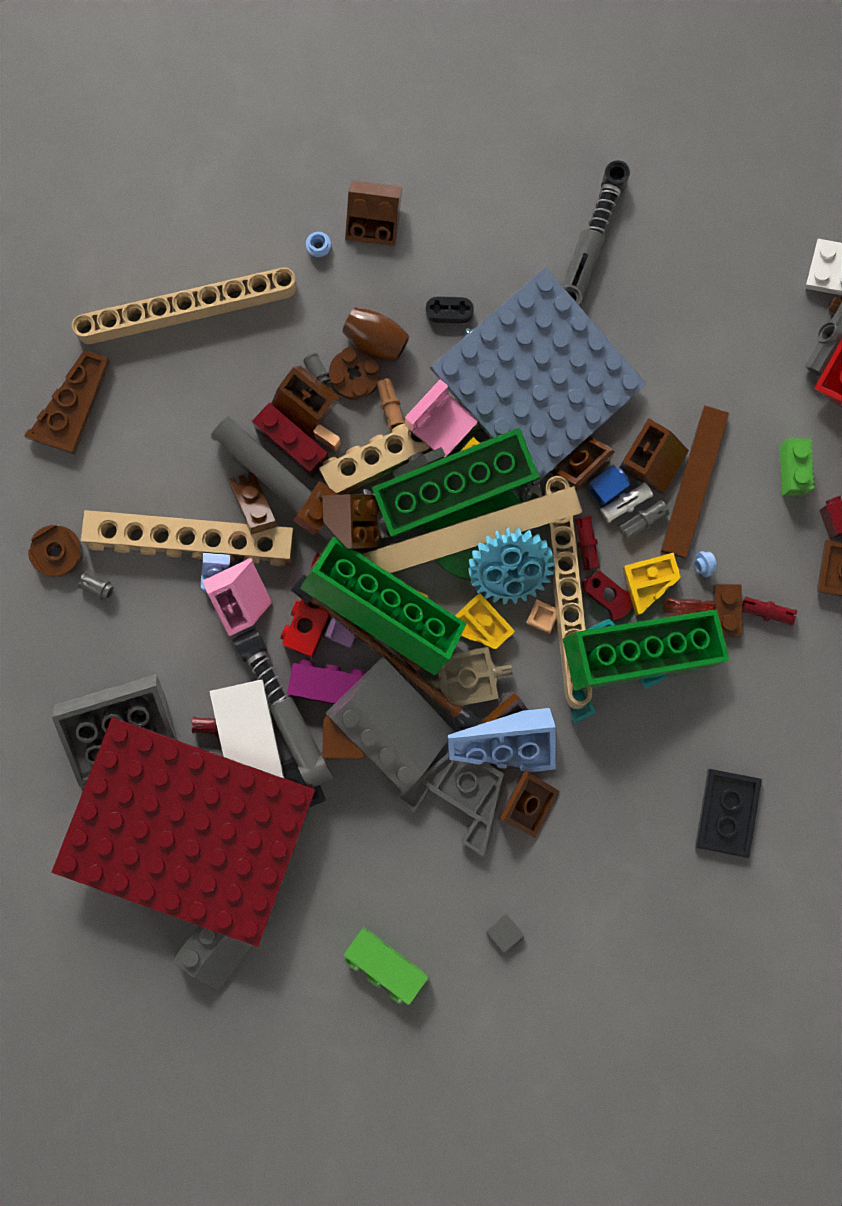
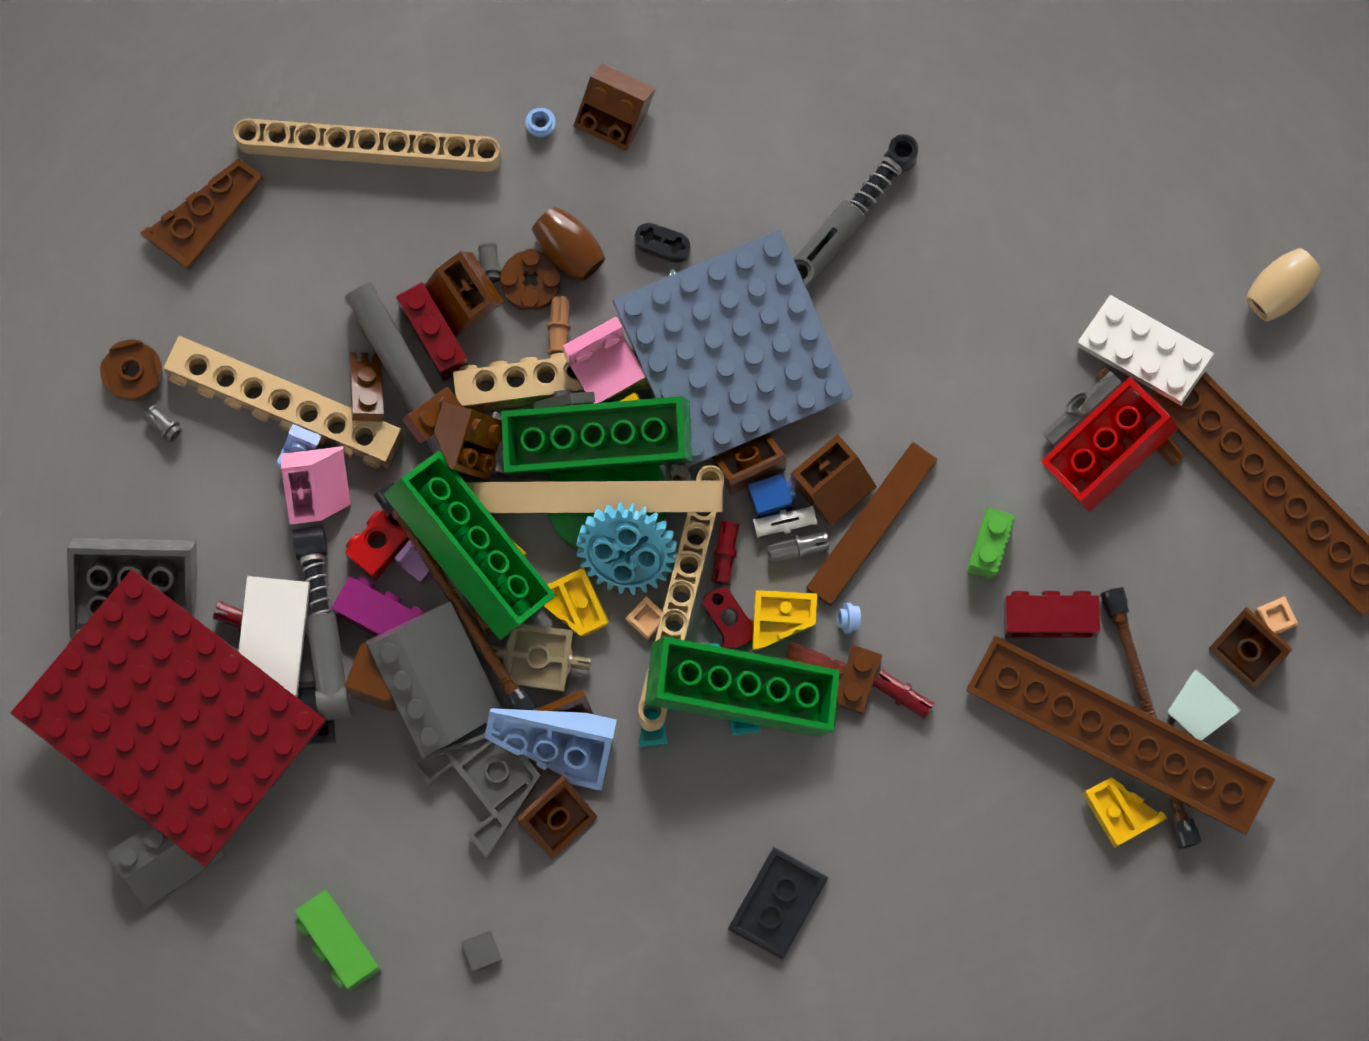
camera: 20 degrees right, 5 degrees down
(327, 437) = (475, 342): light nougat tile -> none

